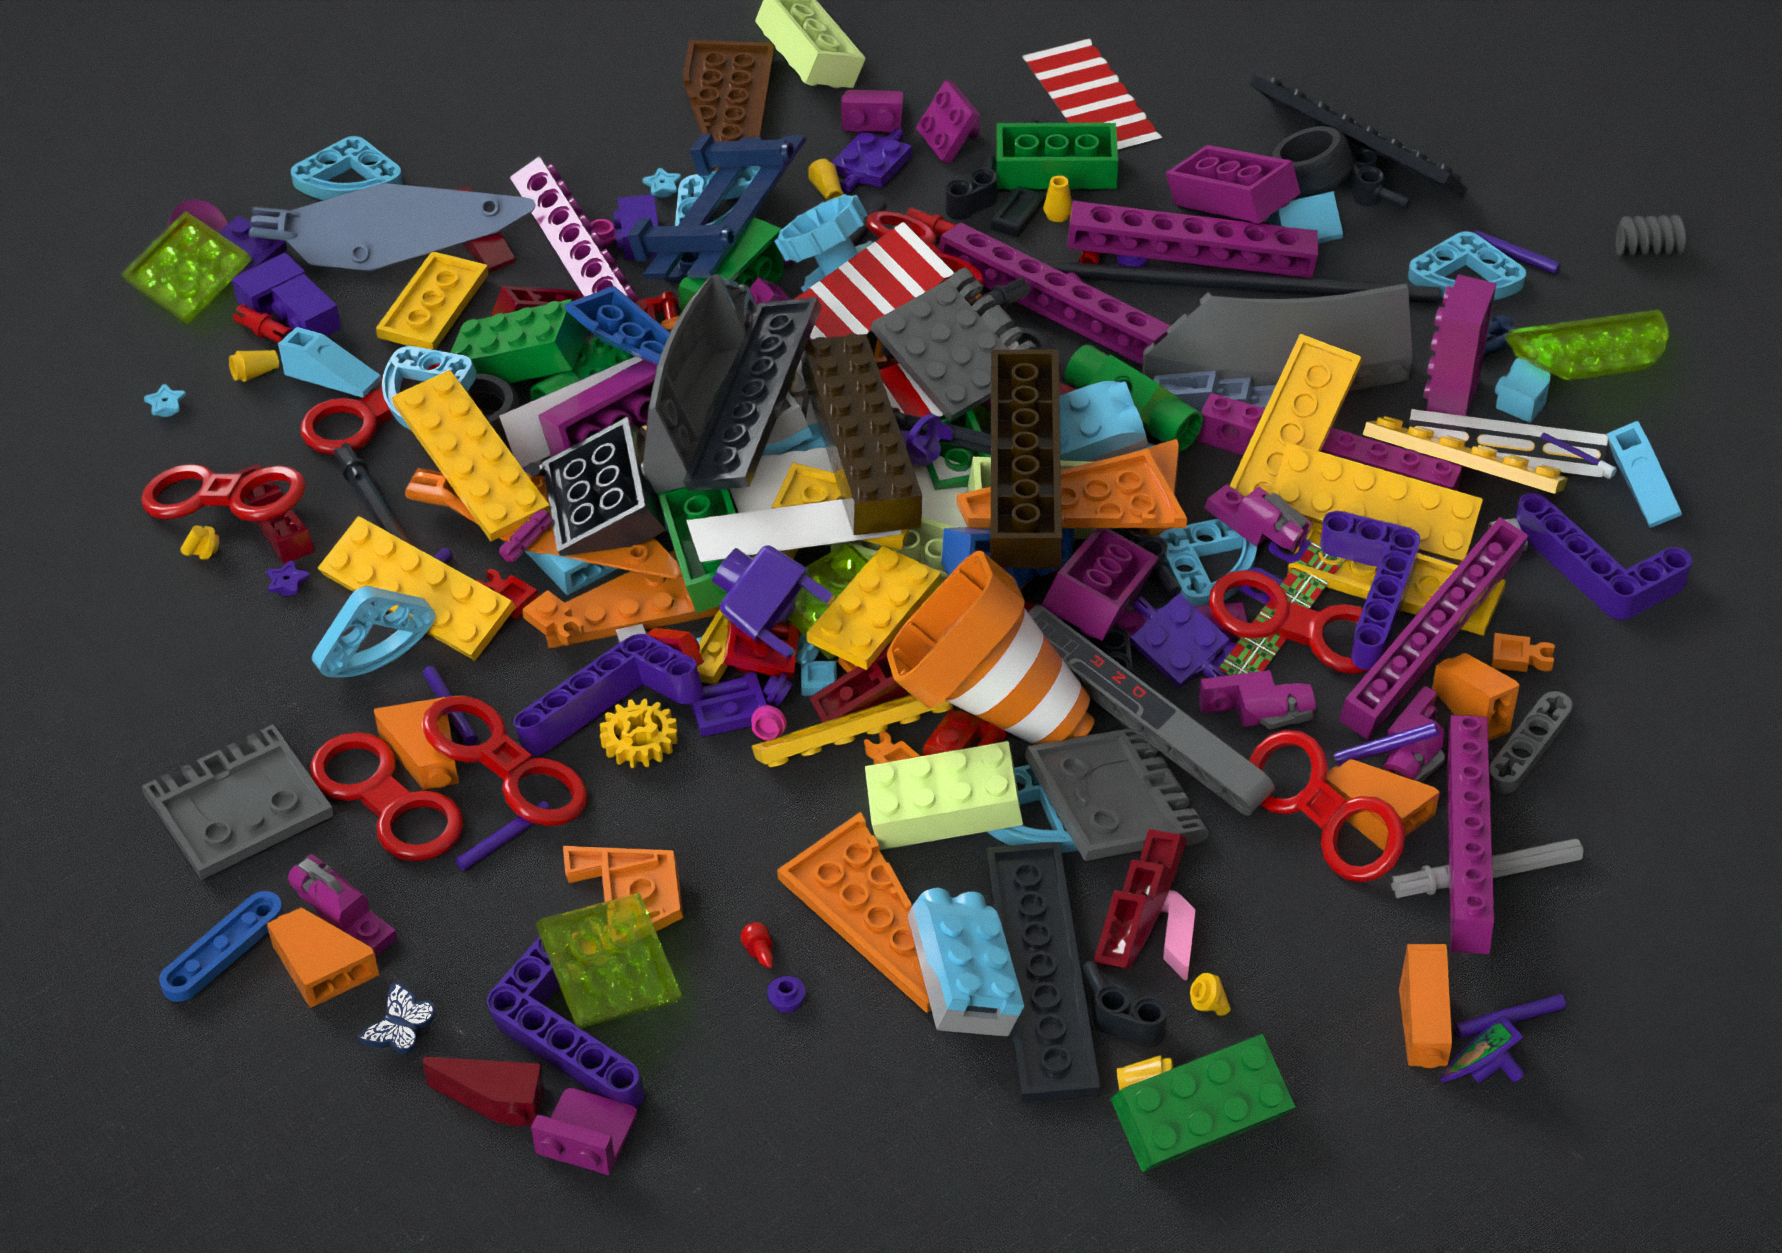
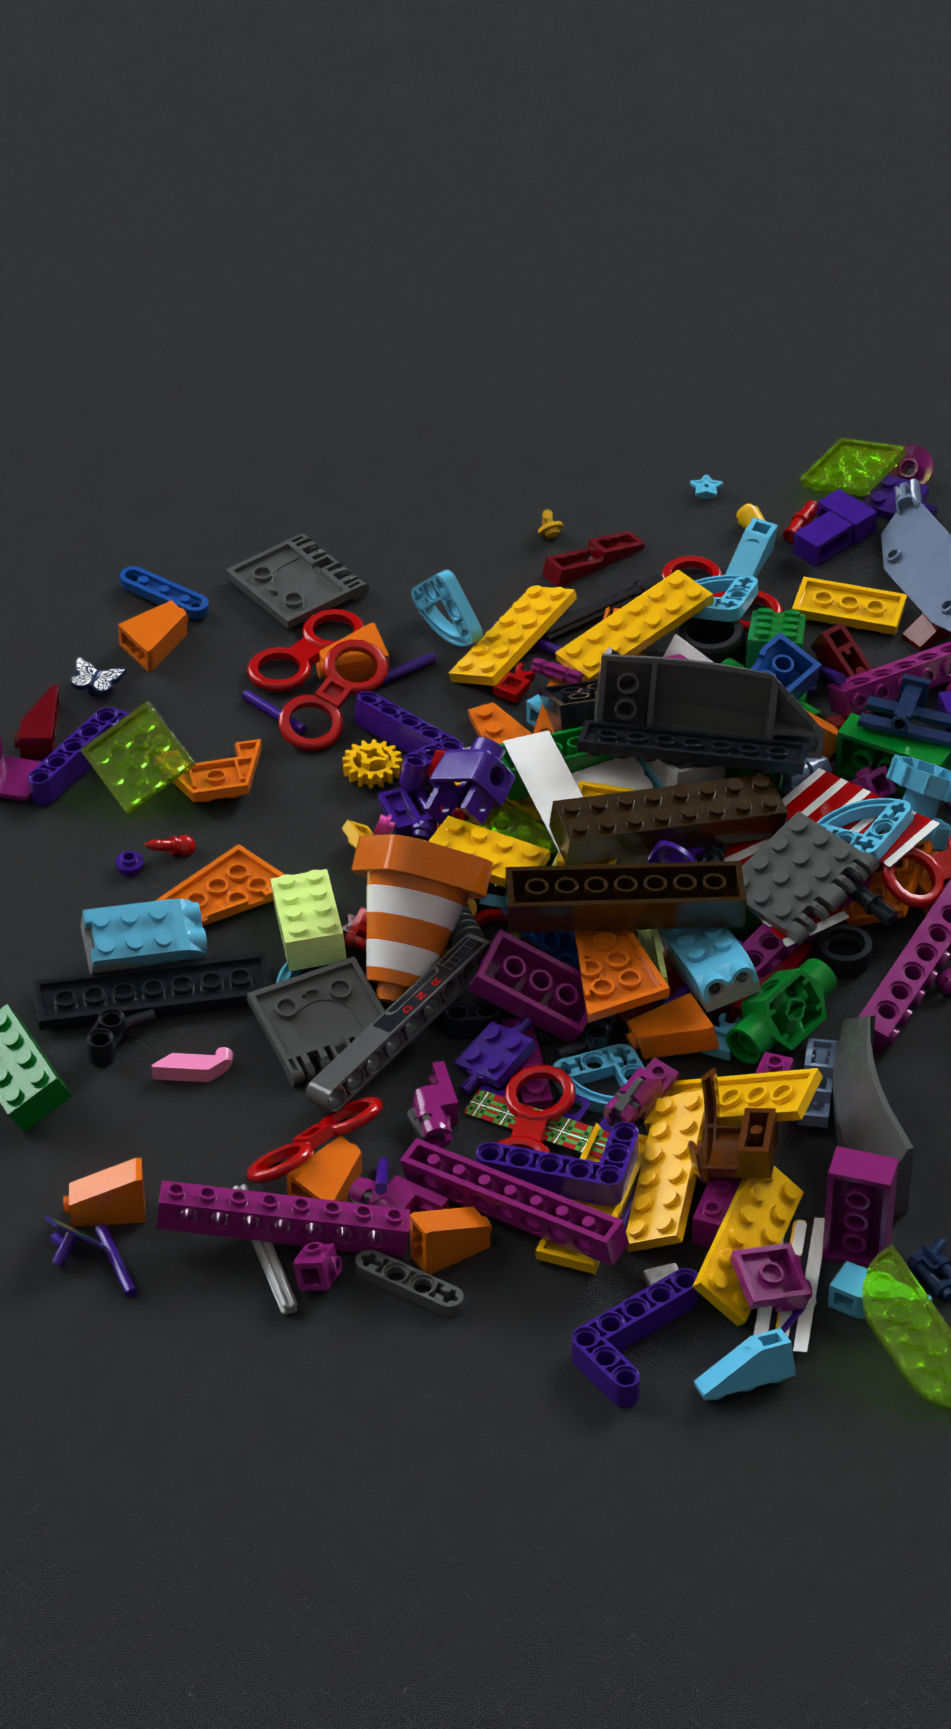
camera: 85 degrees right, 5 degrees down
(223, 491) = (598, 525): red bar -> none
(289, 586) = (519, 574): dark purple plate -> none
(340, 903) = (196, 638): magenta plate -> none
(552, 614) = (481, 700): orange plate -> none
(888, 752) = (351, 901): orange plate -> none
(911, 282) = (891, 814): none -> medium azure beam
(1141, 900) = (207, 1035): dark red slope -> none
(1142, 1070) = (54, 1049): yellow cone -> none
(1209, 994) = (132, 1085): yellow plate -> none
(1377, 425) = (734, 1150): none -> reddish brown piece
(1516, 653) = (510, 1275): orange plate -> none
(1528, 811) = (317, 1266): none -> magenta brick
(1533, 434) = (772, 1277): none -> magenta plate

